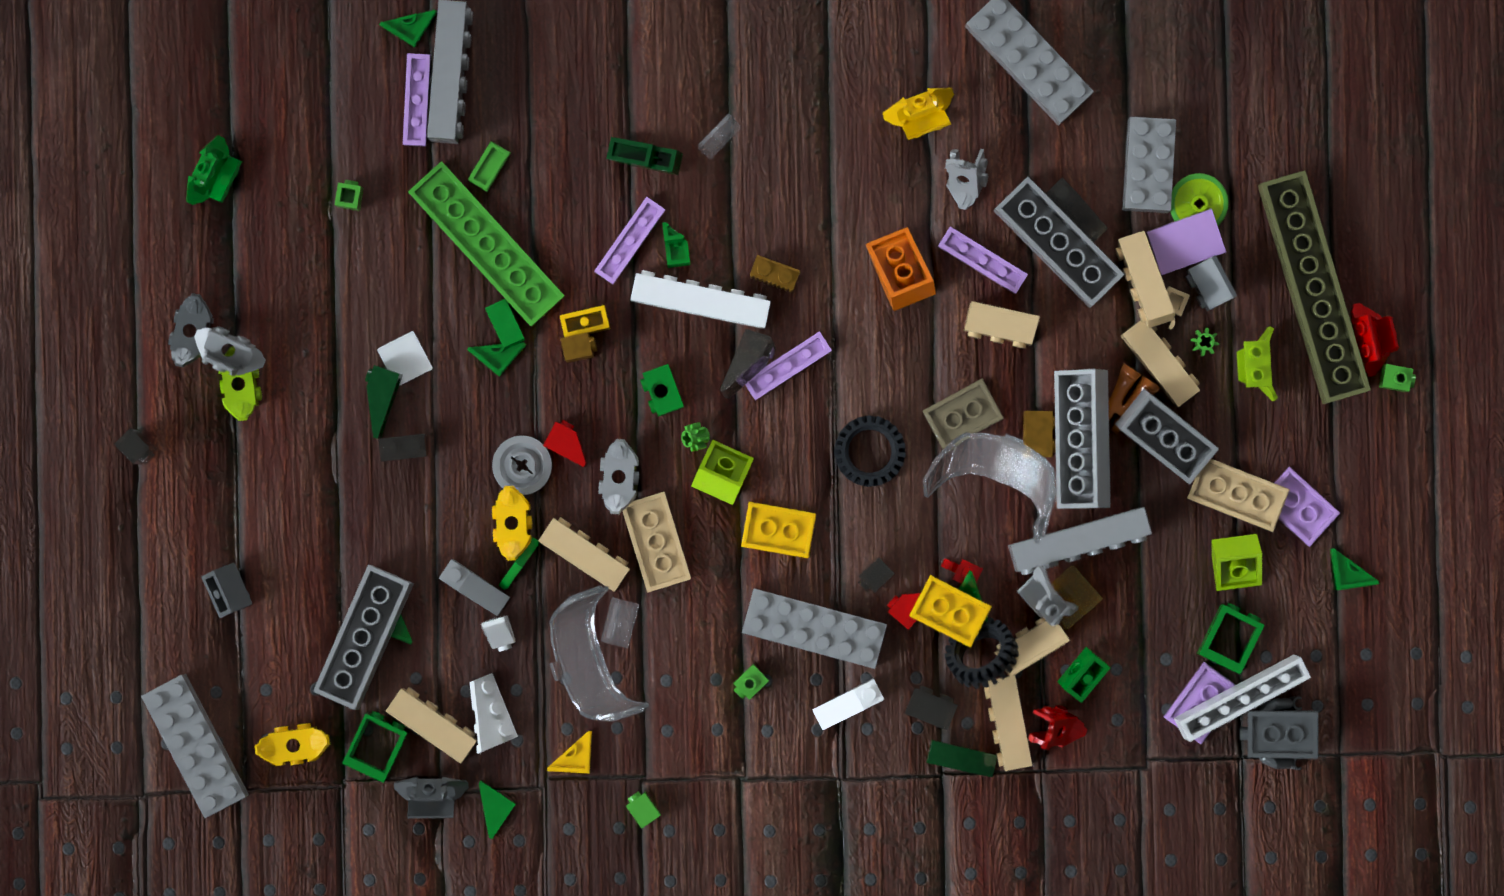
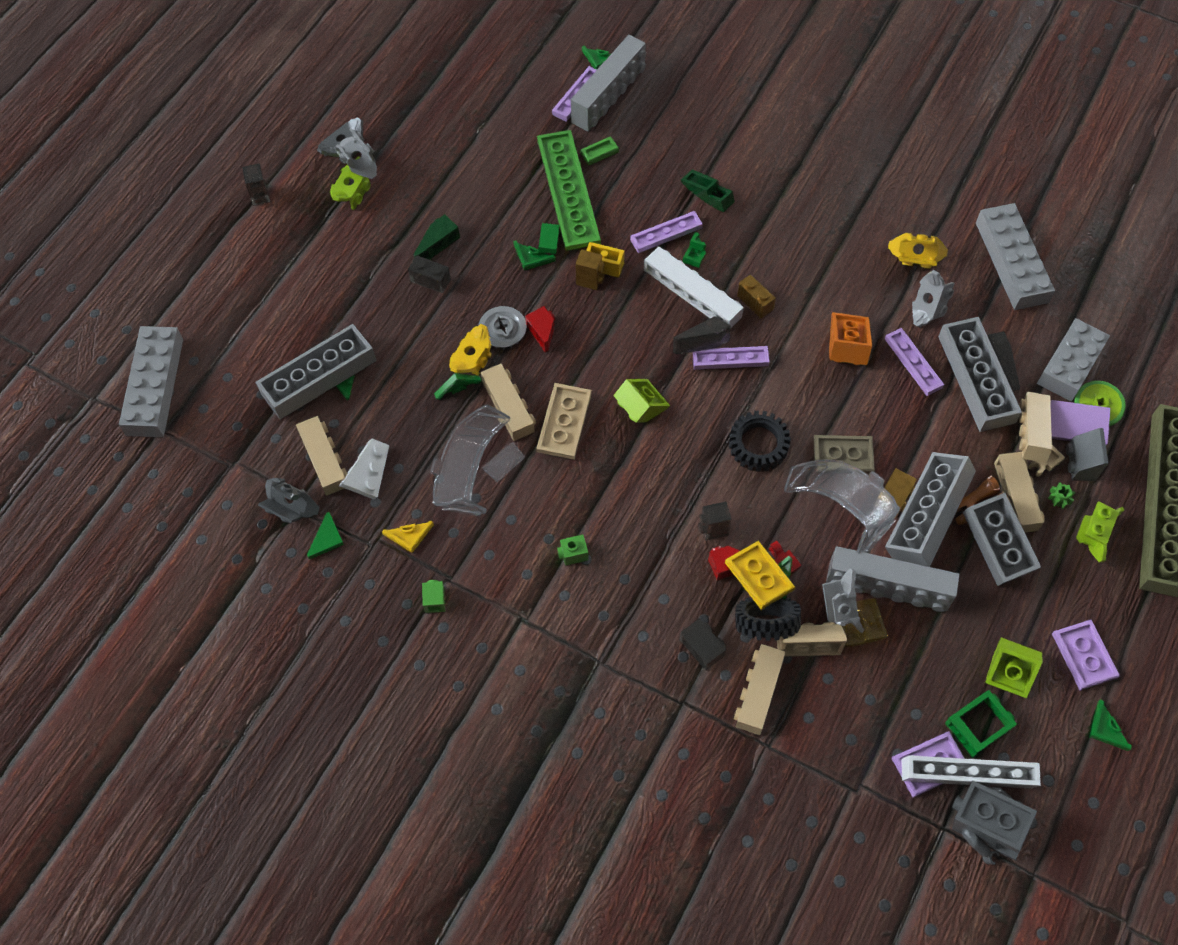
camera: 30 degrees right, 25 degrees down
(213, 160) = (407, 75): green piece -> none
(226, 590) = (248, 296): dark grey brick -> none
(274, 745) = (201, 407): yellow piece -> none
(349, 195) = (497, 119): bright green brick -> none
(364, 767) = (266, 435): green window -> none
(405, 357) = (470, 227): white sticker -> none
(474, 587) = (415, 382): light grey slope -> none
(499, 633) = (412, 411): white slope -> none
(623, 458) = (574, 349): light grey piece -> none
(662, 376) = (631, 338): green brick -> none
(695, 436) = (636, 367): bright green gear -> none
(719, 136) = (765, 201): clear slope -> none
(778, 530) = (659, 460): yellow tile -> none
(814, 628) = (646, 537): light grey brick -> none
(848, 704) = (640, 606): white slope -> none
(961, 758) = (705, 695): dark green slope -> none
(1000, 324) = (908, 402): tan slope -> none
(1059, 717) = (809, 722): red piece -> none
(1083, 674) = (842, 682): green brick -> none
(1239, 494) = (1039, 617): tan tile -> none

